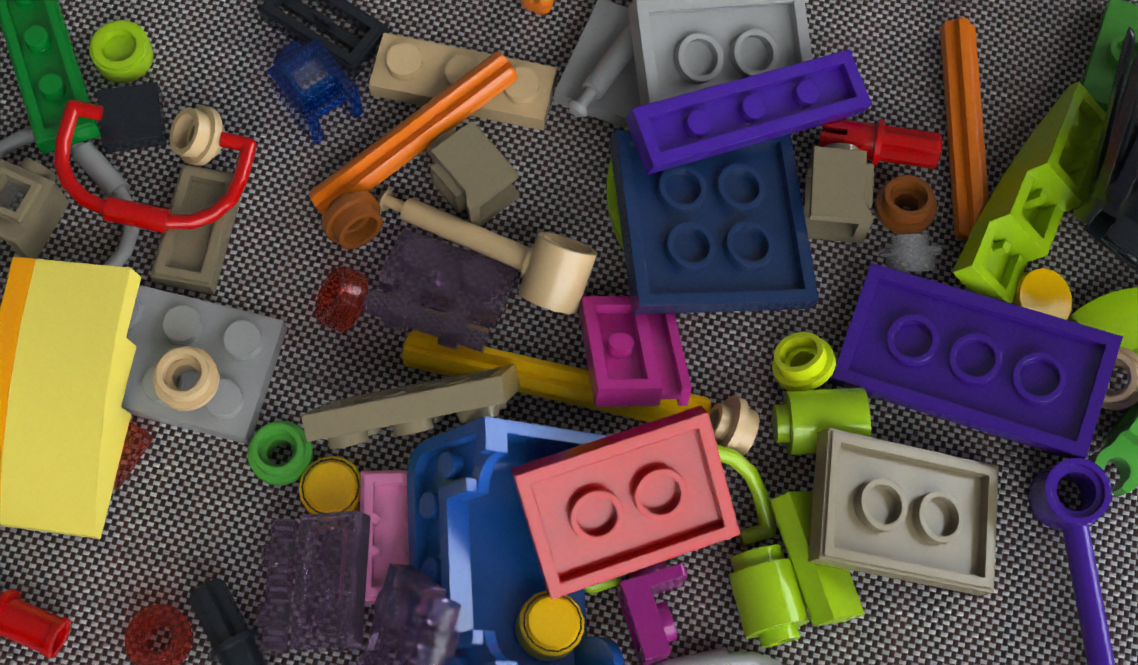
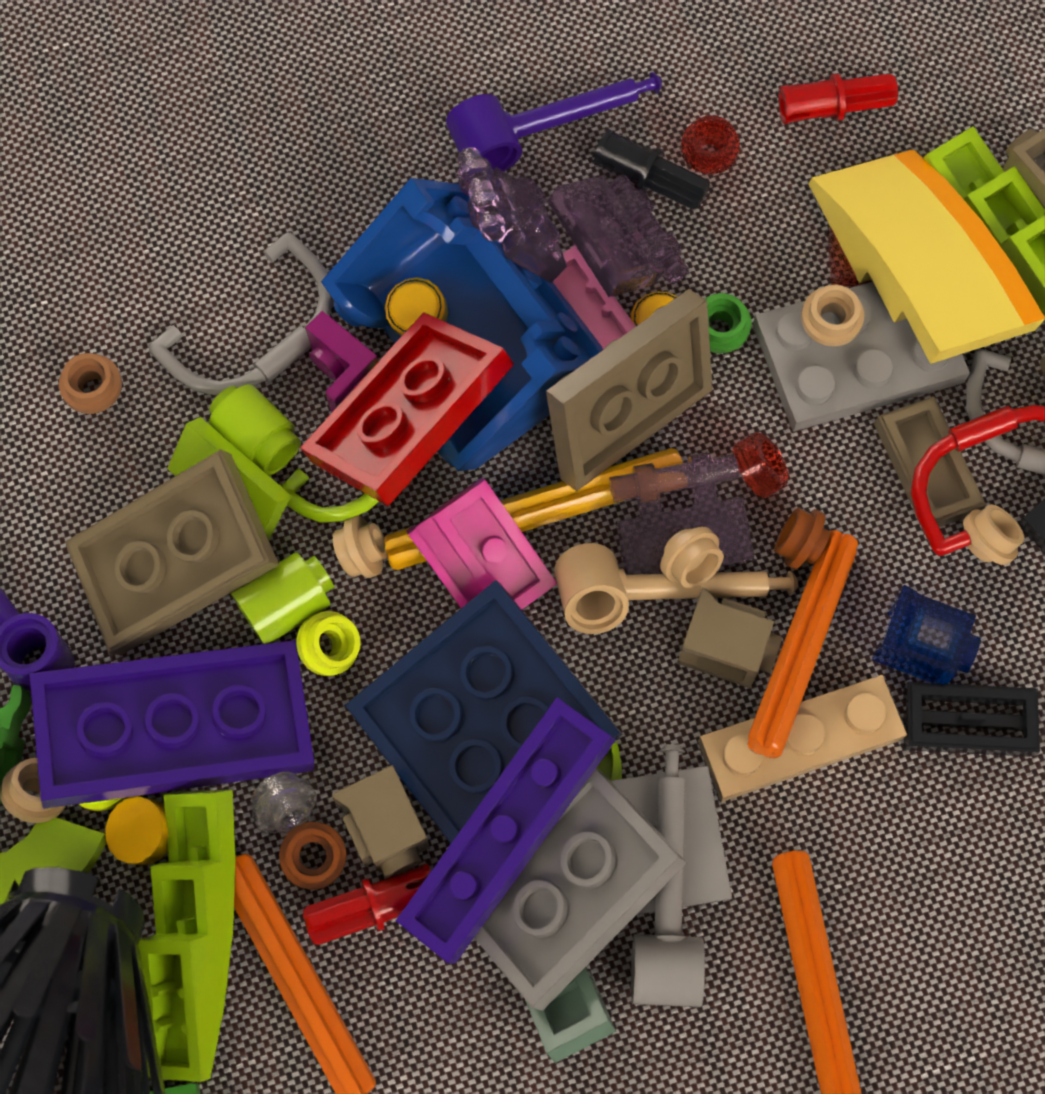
camera: 150 degrees right, 0 degrees up
(461, 236) = (692, 557): none -> tan plate

